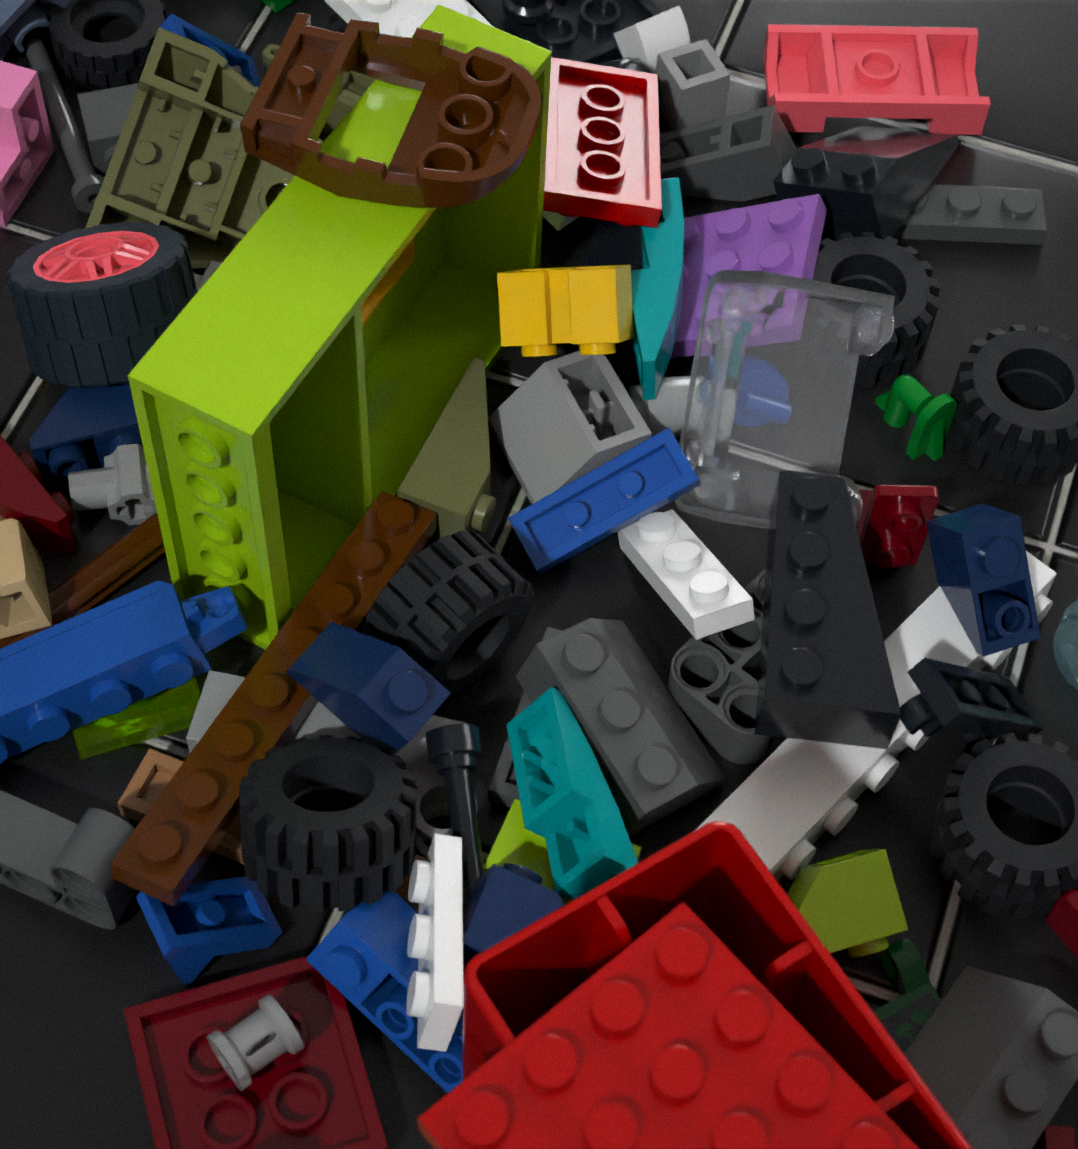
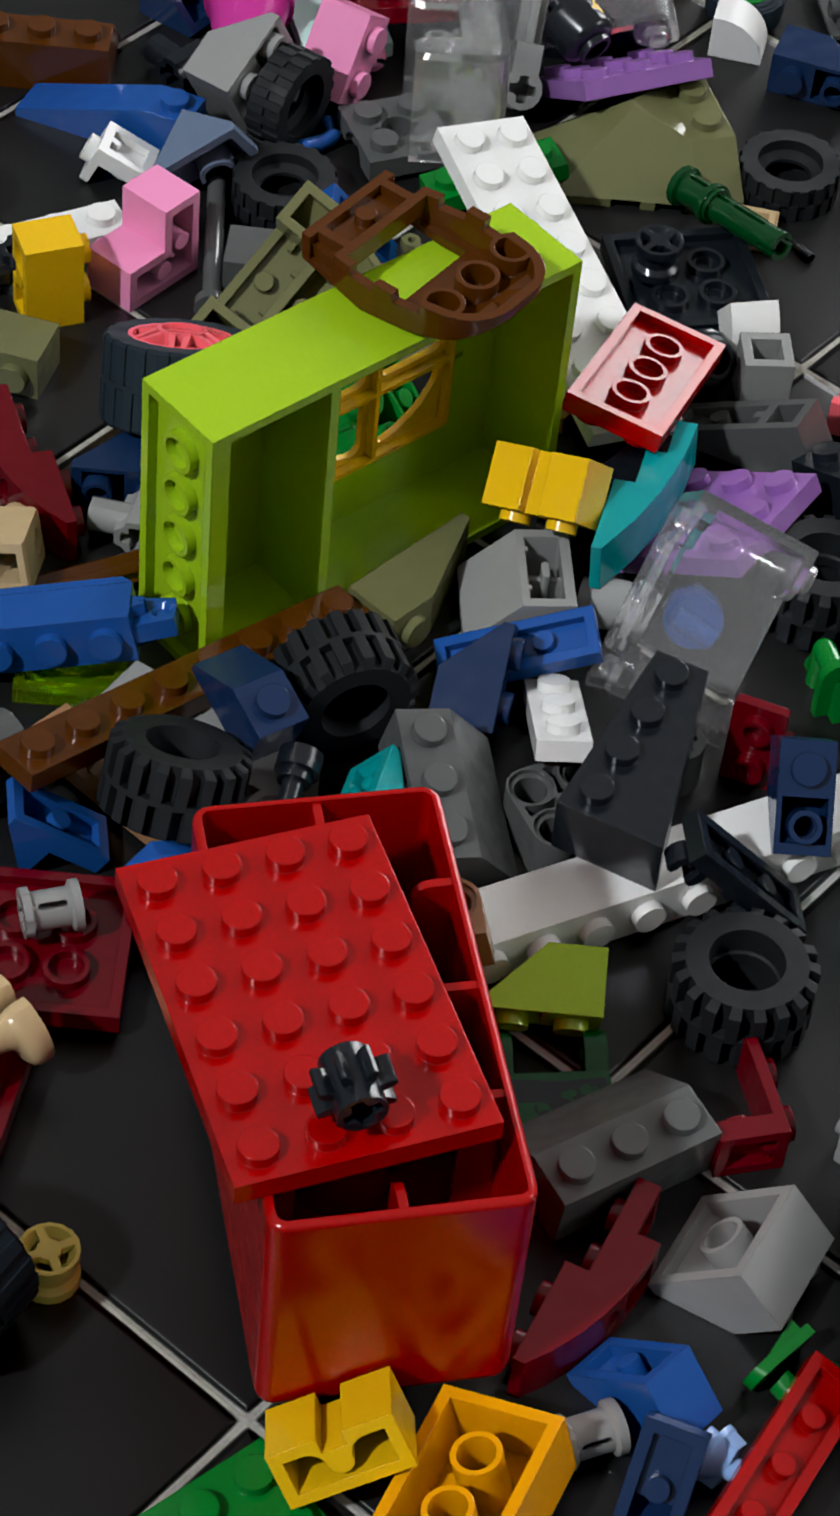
camera: 20 degrees right, 10 degrees down
(581, 561) = (477, 679): none -> dark blue slope

